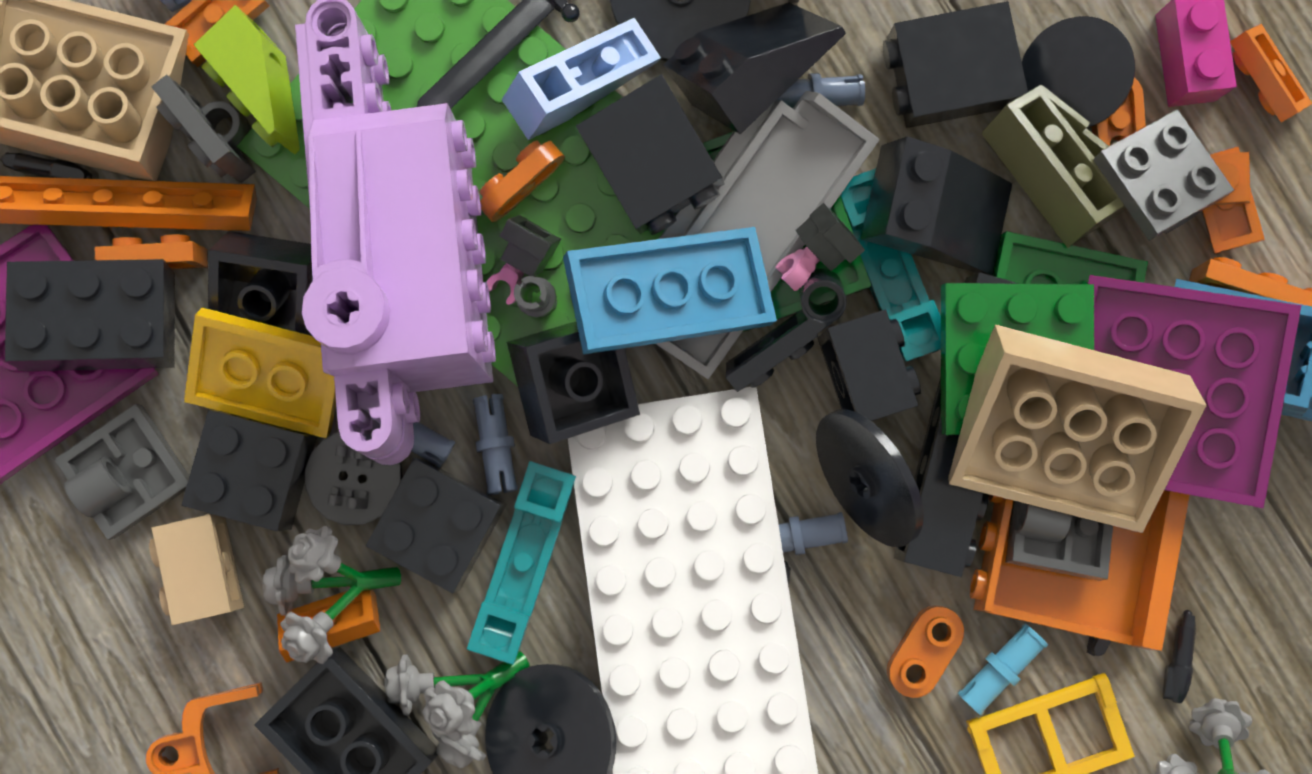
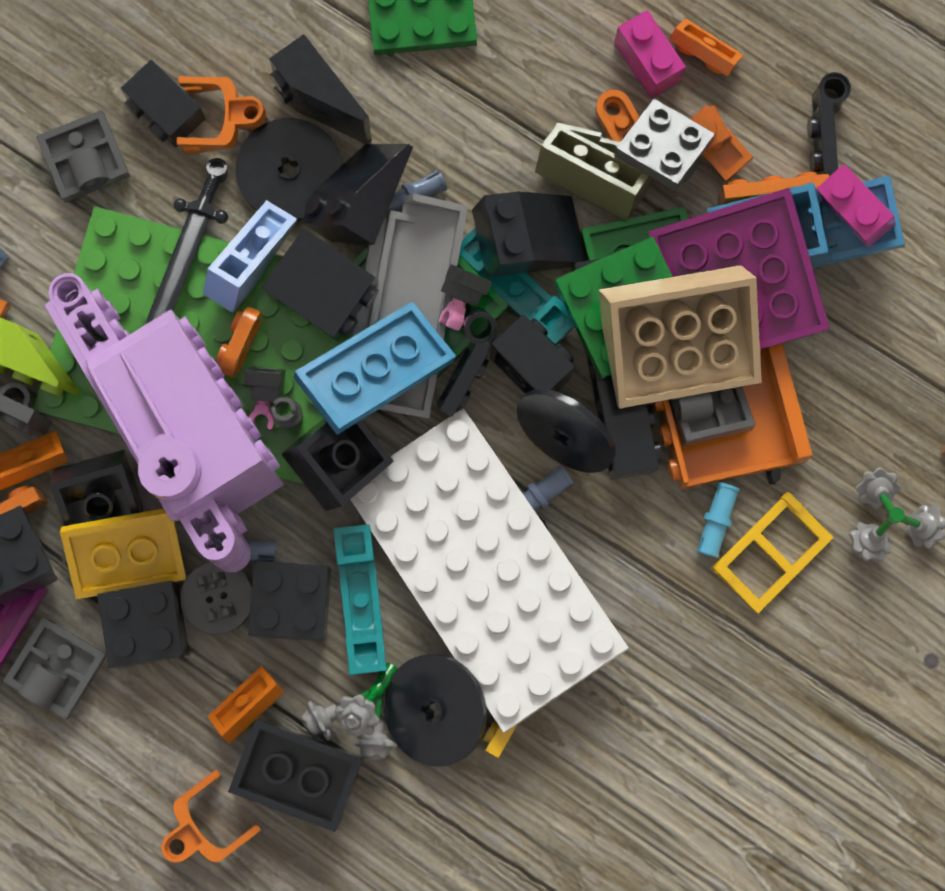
camera: 30 degrees left, 5 degrees down
(196, 568) = (136, 709): tan brick -> none
(309, 559) = (215, 658): light grey plant -> none
(495, 444) = (304, 529): sand blue pin -> none
(922, 649) = (661, 532): orange plate -> none
(954, 64) = (495, 135): black brick -> none
(1083, 65) = (579, 97): black shield -> none
(1179, 673) = (836, 468): black piece -> none

